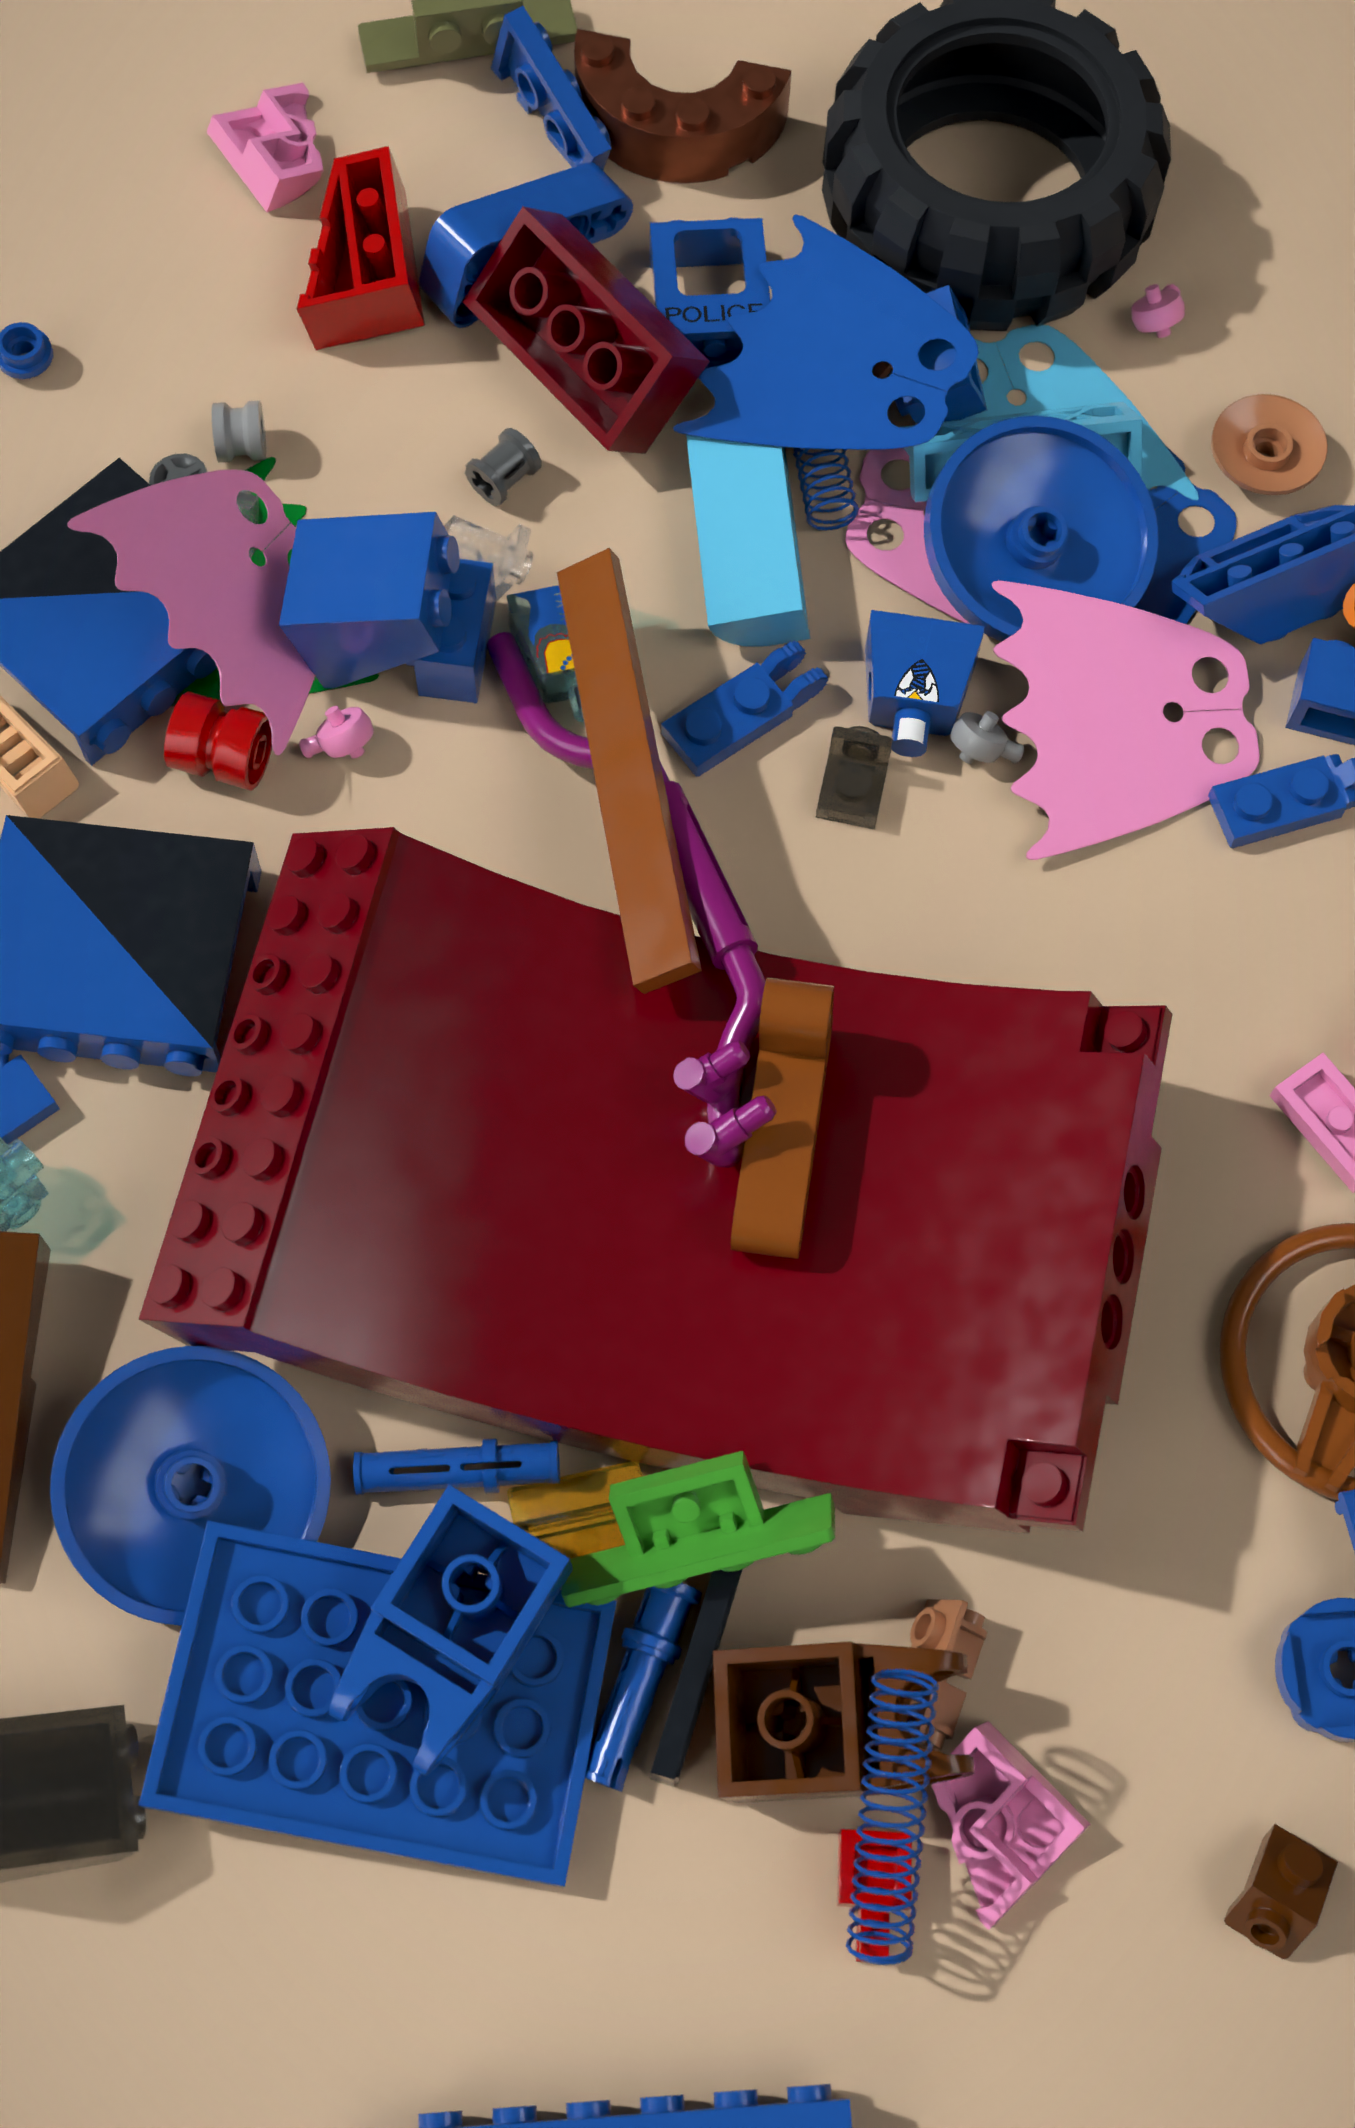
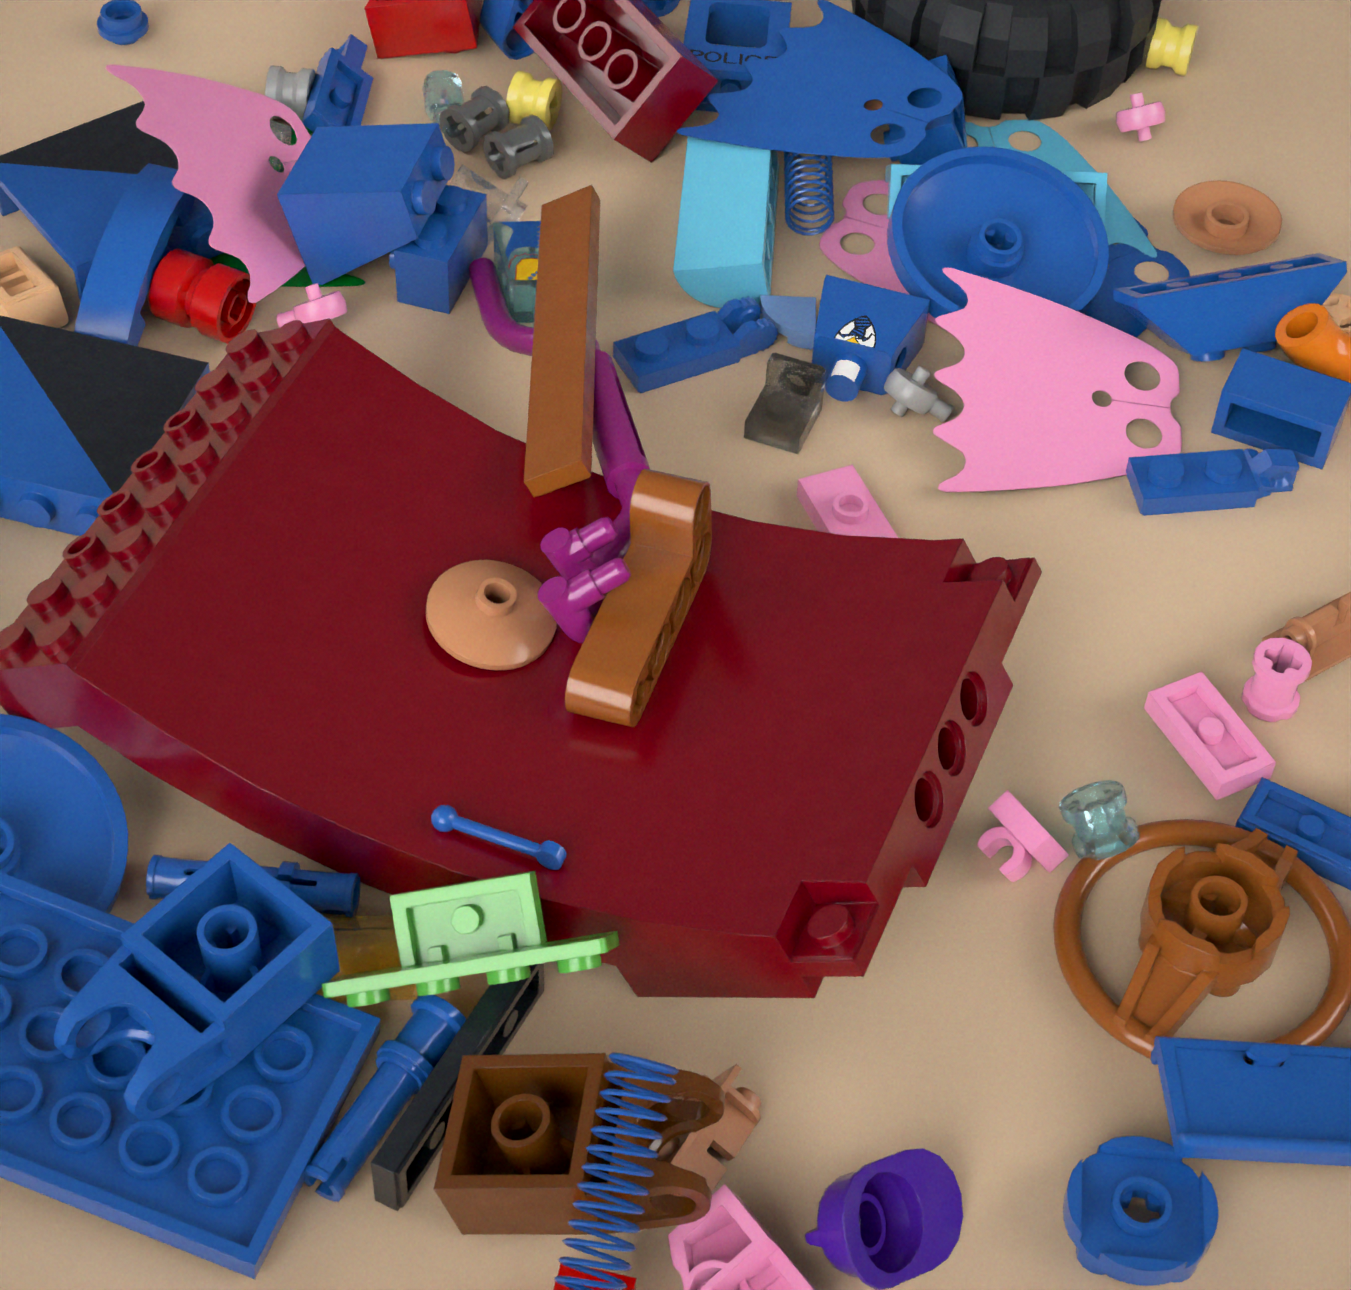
camera: 10 degrees right, 20 degrees down
(134, 716) = (130, 256): none -> blue slope
(291, 422) = (339, 88): none -> blue hinge
(405, 407) = (440, 91): none -> clear light blue piece
(446, 433) = (475, 119): none -> dark grey bush
(505, 398) = (534, 97): none -> light yellow wheel
(611, 1164) = (488, 632): none -> nougat dish
(640, 1396) = (548, 853): none -> blue hinge
(838, 654) = (792, 317): none -> medium blue tile
(943, 912) = (842, 504): none -> bright pink plate
(1125, 1732) = (890, 1218): none -> dark purple piece
(1181, 204) = (1171, 46): none -> light yellow wheel
(1183, 1275) = (1025, 836): none -> bright pink tile
(1250, 1249) = (1099, 820): none -> clear light blue wheel

